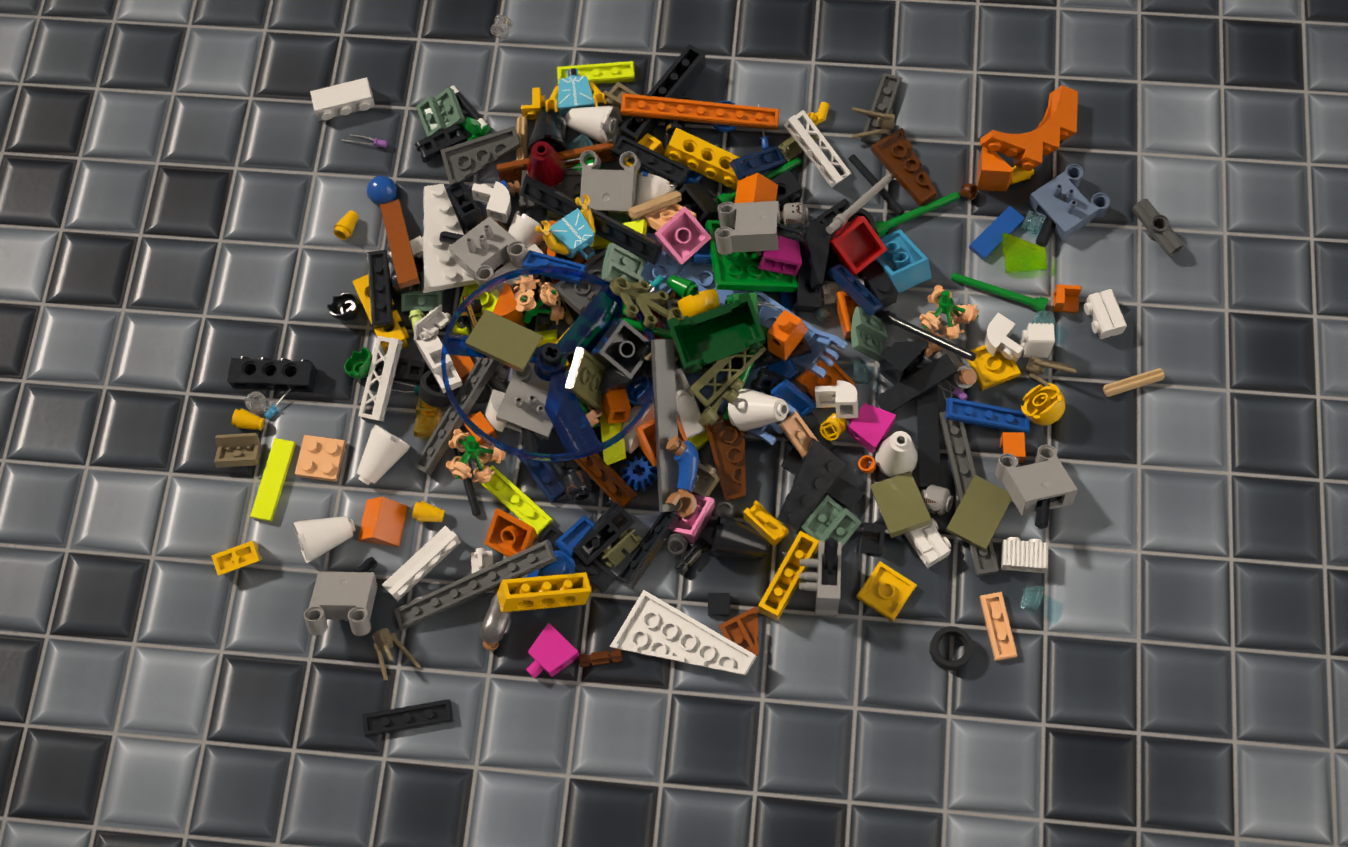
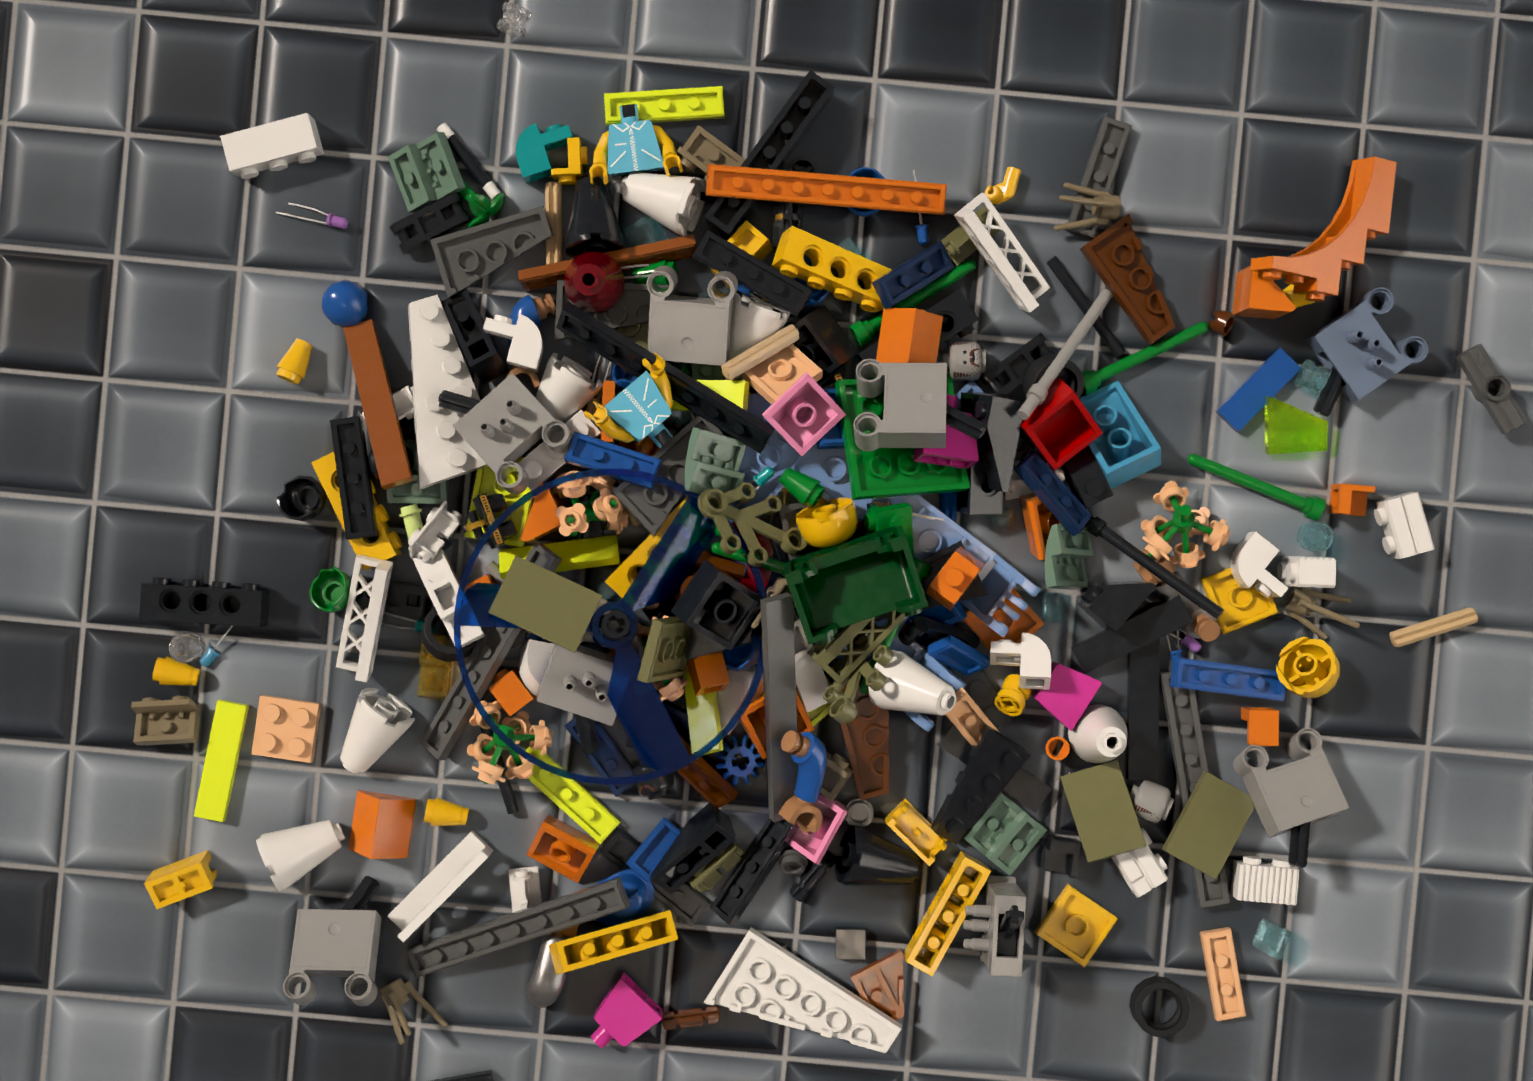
camera: 10 degrees left, 20 degrees up
(512, 95) = (533, 149): none -> teal brick

